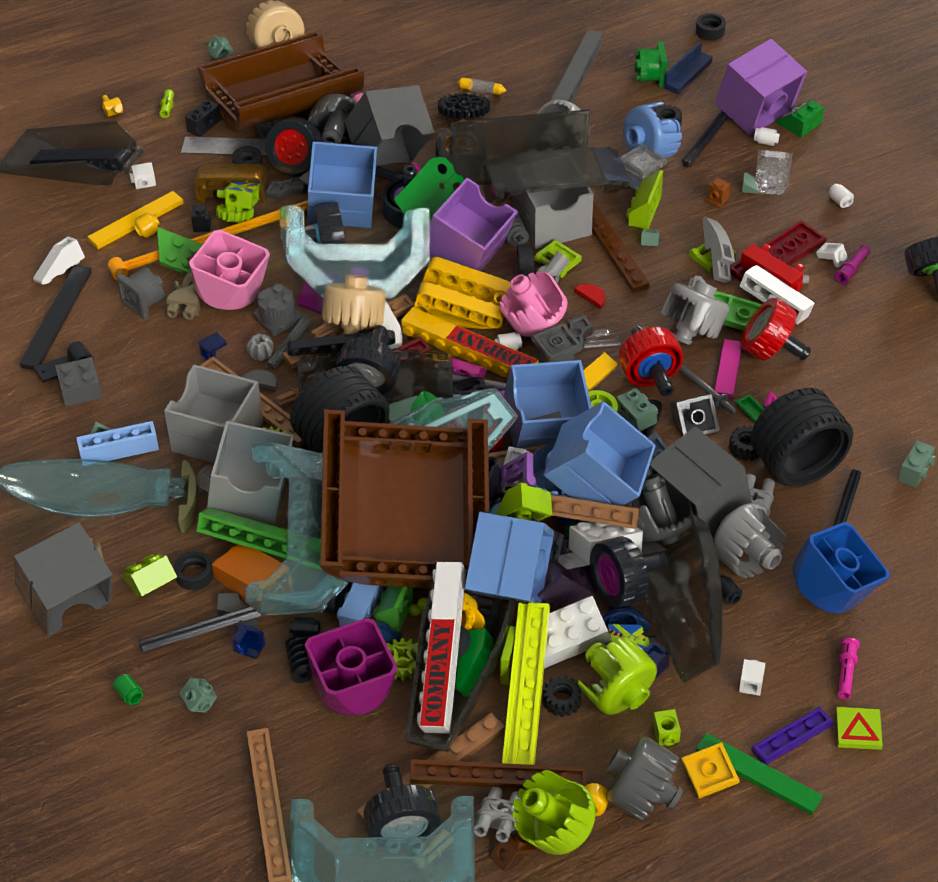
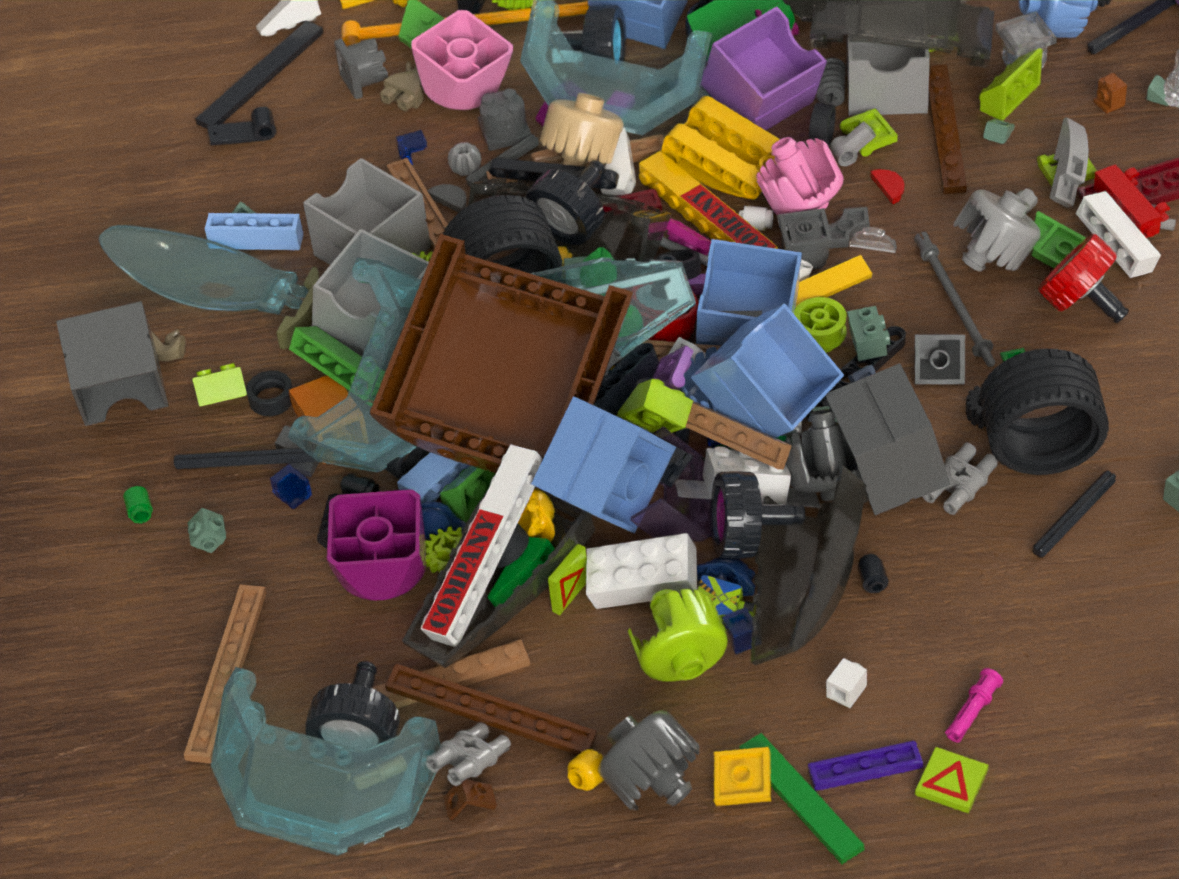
camera: 25 degrees right, 0 degrees up
(78, 381) = (246, 153): dark grey brick -> none
(526, 684) = (568, 615): neon yellow plate -> none
(554, 813) = (523, 768): lime piece -> none
(562, 706) = (611, 631): black tyre -> none
(651, 358) = (912, 274): red wheel -> none
(666, 720) = (715, 712): lime brick -> none
(728, 368) = (1013, 312): dark pink tile -> none
(755, 534) = (924, 509): light grey piece -> none
(837, 569) = (1009, 581): blue piece -> none

